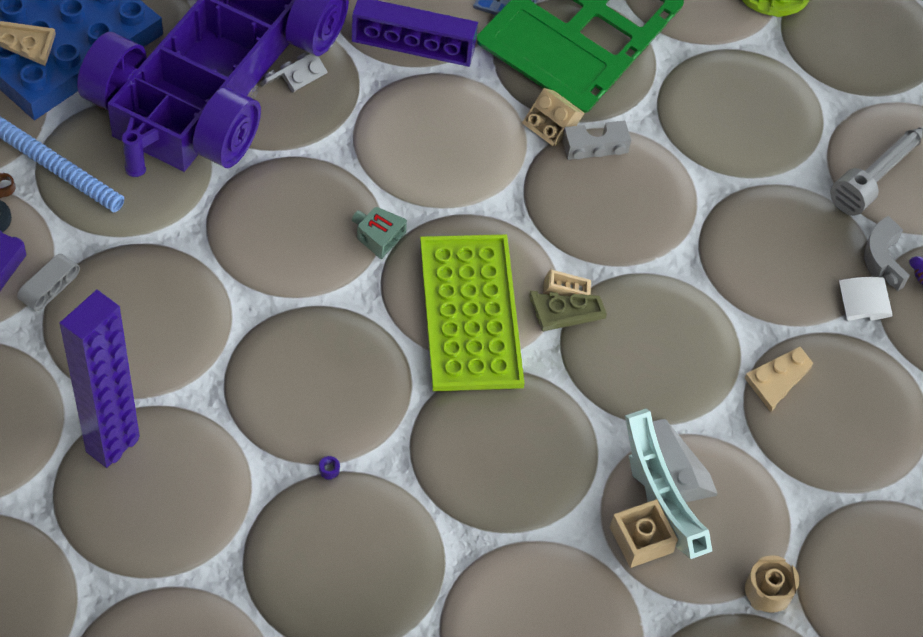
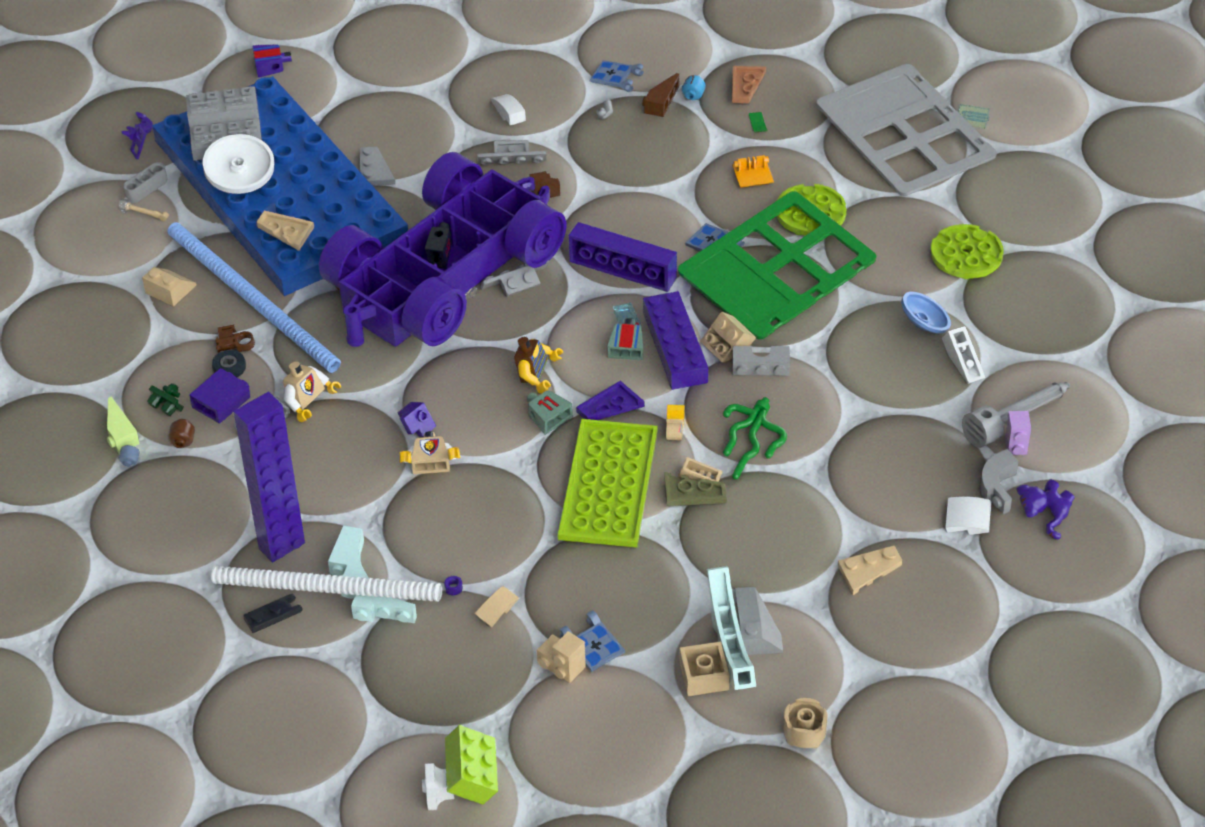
camera: 20 degrees right, 10 degrees down
(90, 237) = (303, 387): none -> torso
(123, 537) = (272, 613): none -> black hinge
(183, 492) = (326, 583): none -> white piece
(208, 41) = (439, 245): none -> black torso
(216, 483) = (346, 561): none -> light aqua arch
(232, 260) = (416, 418): none -> dark purple brick
(261, 303) = (429, 454): none -> tan torso
(345, 173) = (531, 361): none -> torso
(387, 487) = (496, 605): none -> tan slope
(436, 105) = (625, 311): none -> clear light blue tile
(445, 134) = (626, 341): none -> sand green torso
(445, 211) = (610, 402): none -> dark purple wing
(480, 543) = (563, 656): none -> tan brick
(497, 126) = (675, 340): none -> dark purple brick
(508, 518) = (599, 643): none -> sand blue flag
(524, 227) = (675, 422): none -> leg
(610, 206) = (757, 417): none -> green plant
(755, 63) = (925, 313): none -> medium blue dish
(806, 108) = (963, 354): none -> white slope
(893, 195) = (1018, 432): none -> lavender brick

